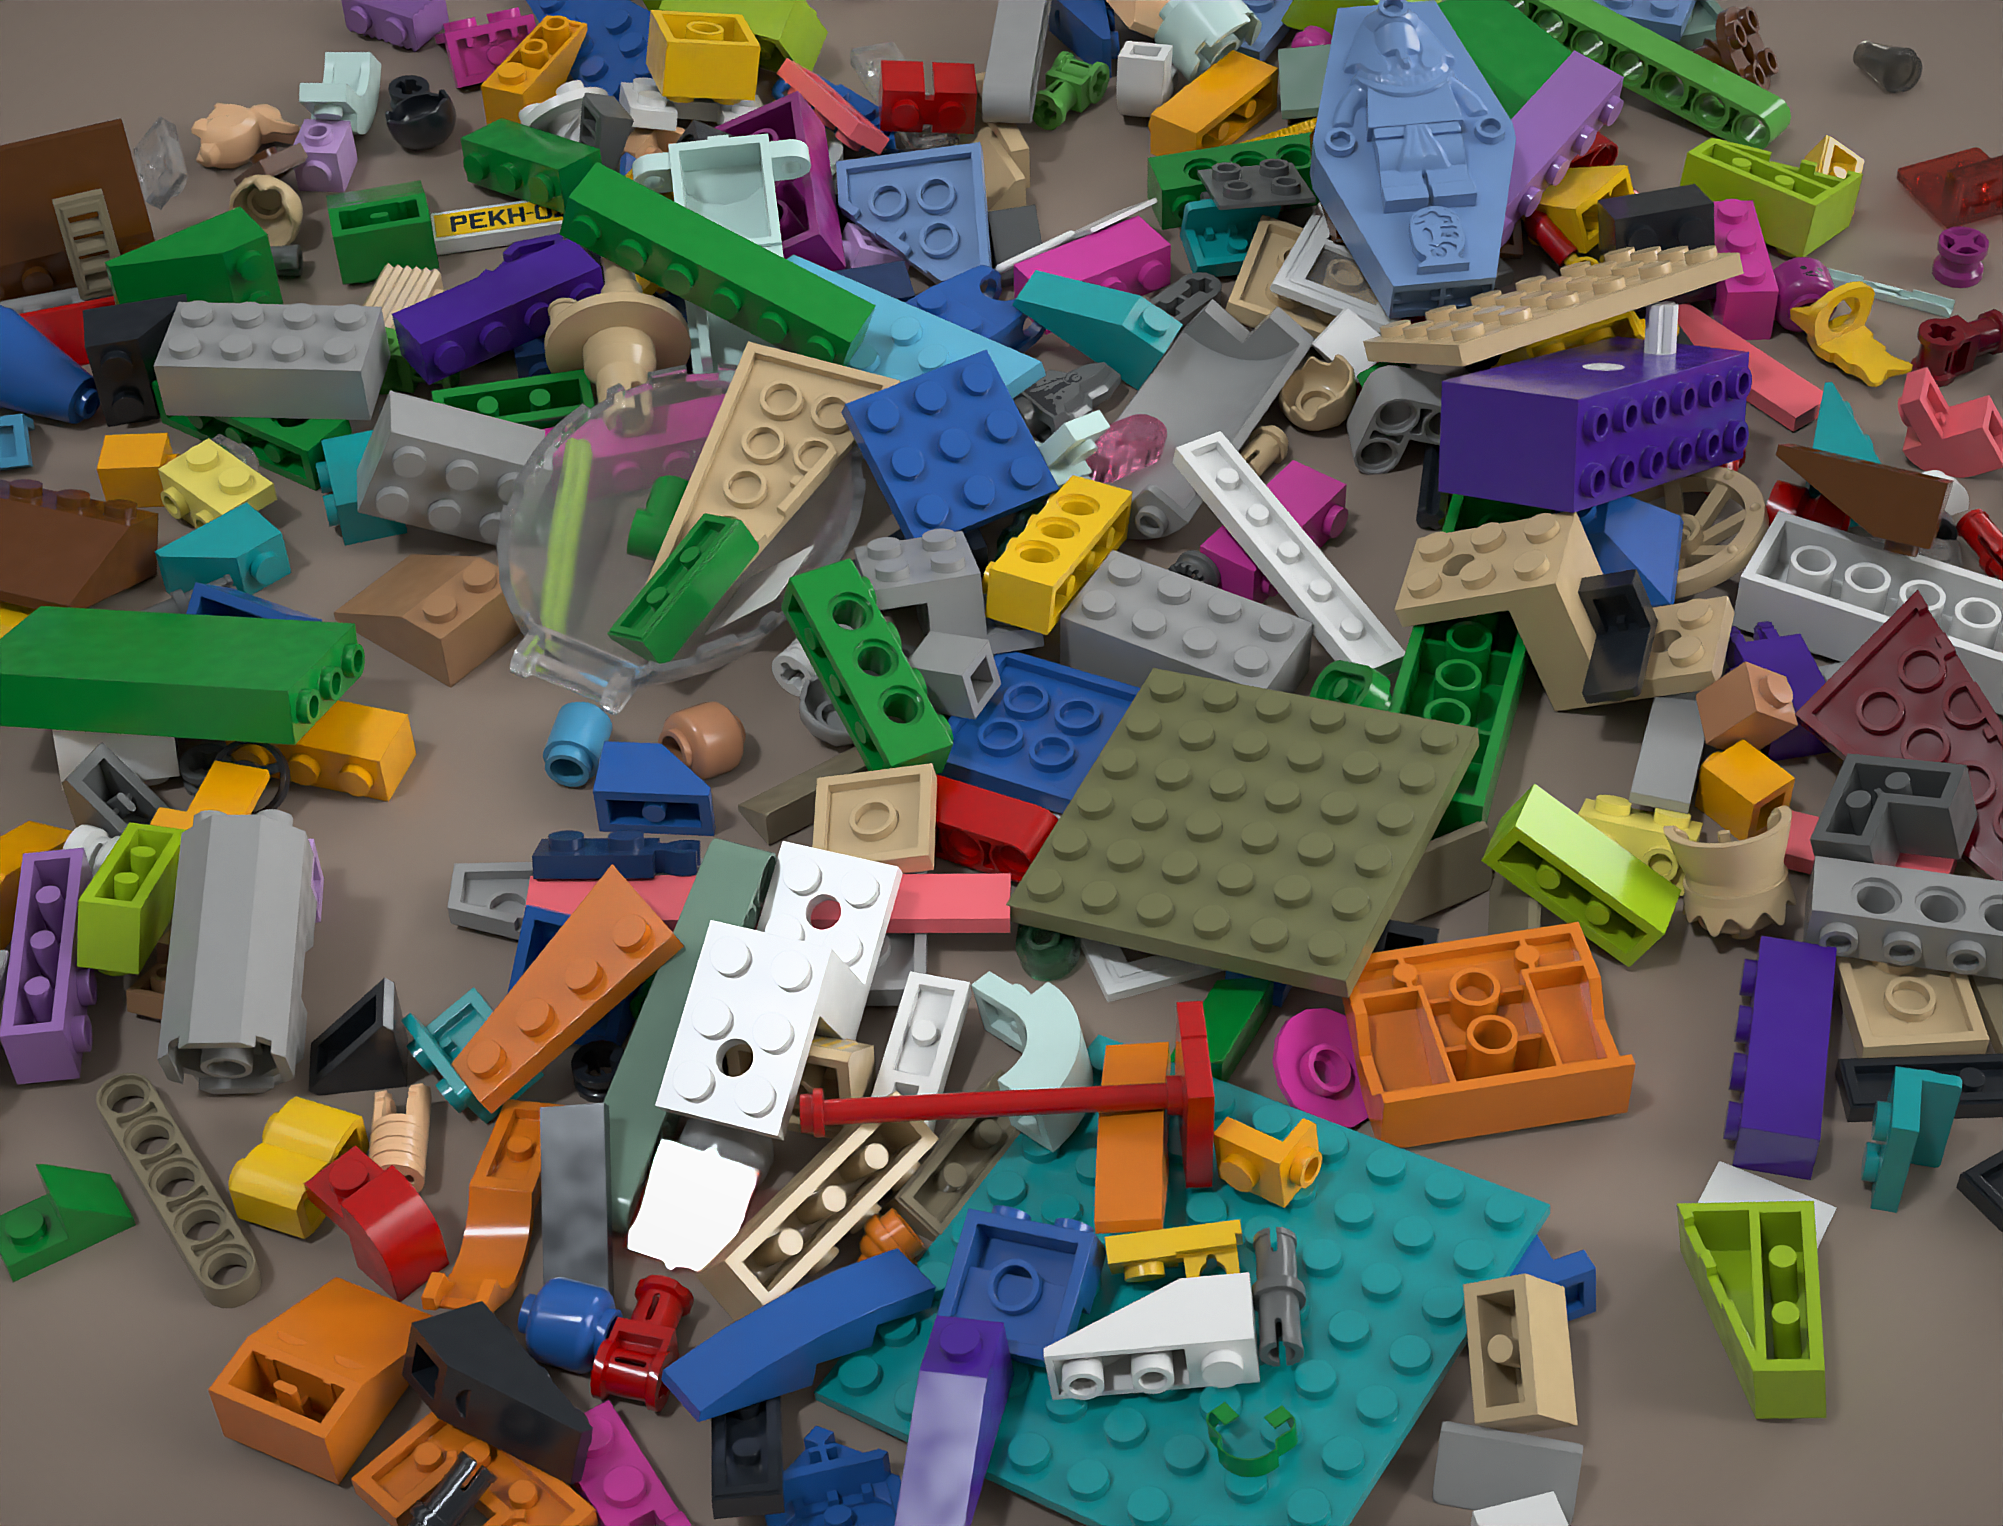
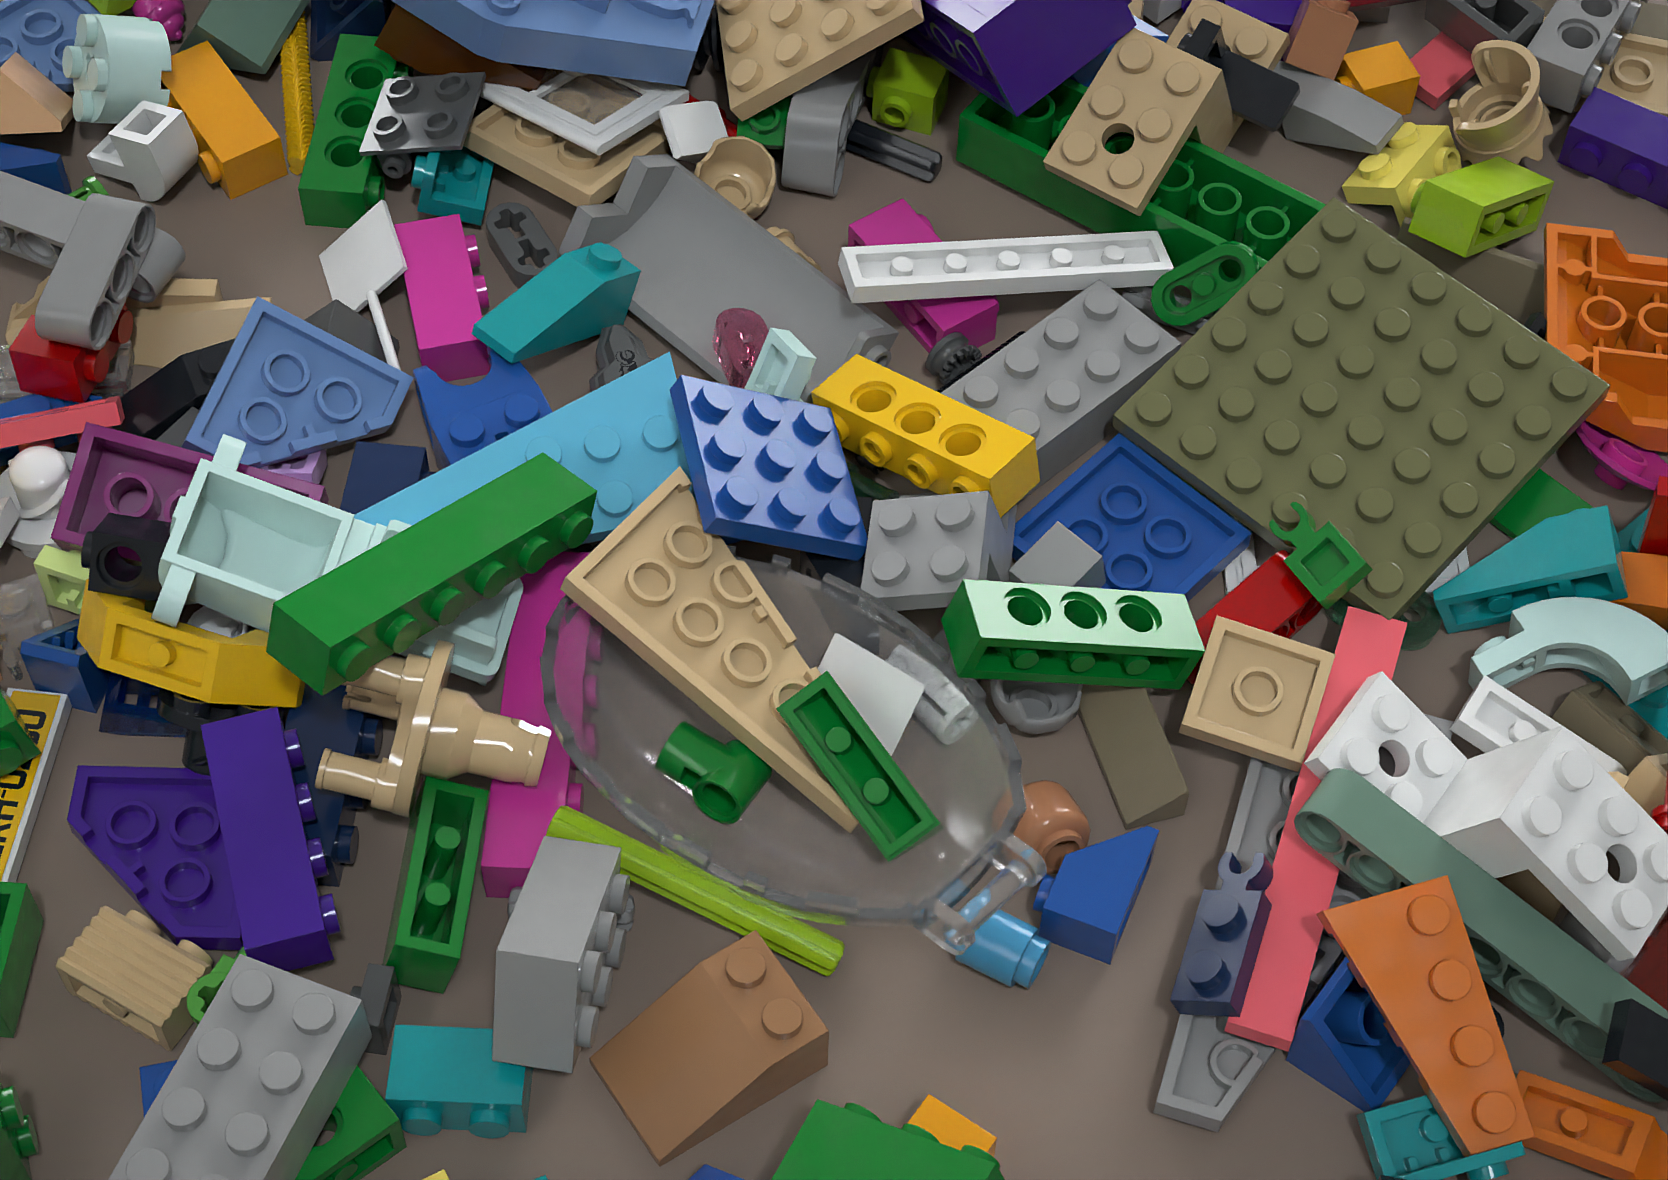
camera: 75 degrees left, 10 degrees up
(941, 76) = (95, 271): none -> light grey beam
(1032, 825) = (1322, 558): none -> green plate
(1118, 1002) = (1554, 559): none -> teal slope

